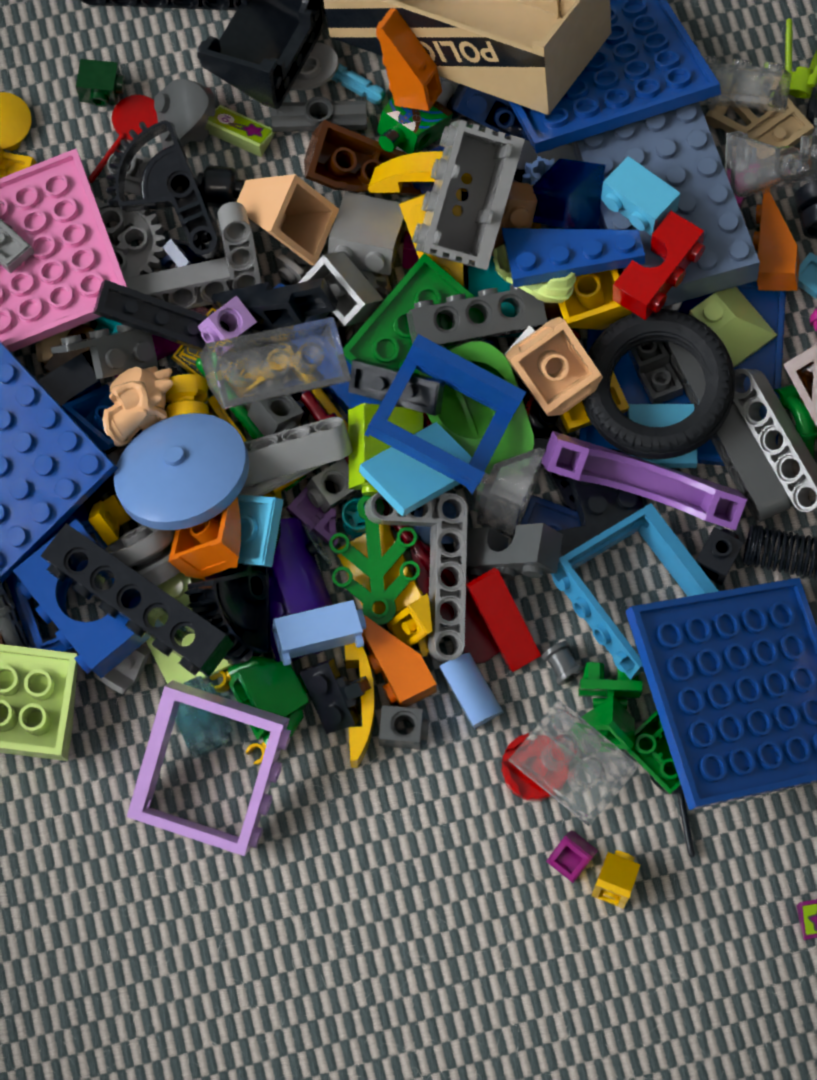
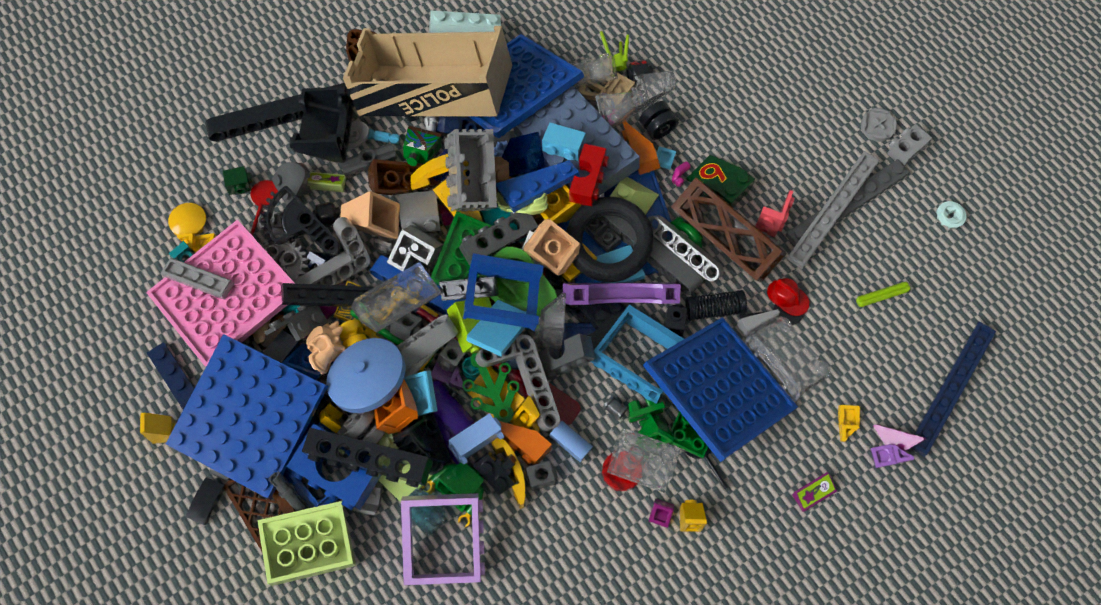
camera: 25 degrees left, 5 degrees down
(234, 315) = (363, 280): lavender brick -> none
(282, 305) = (381, 269): black slope -> none
(409, 67) = (410, 115): orange slope -> none
(503, 619) = (574, 395): red tile -> none

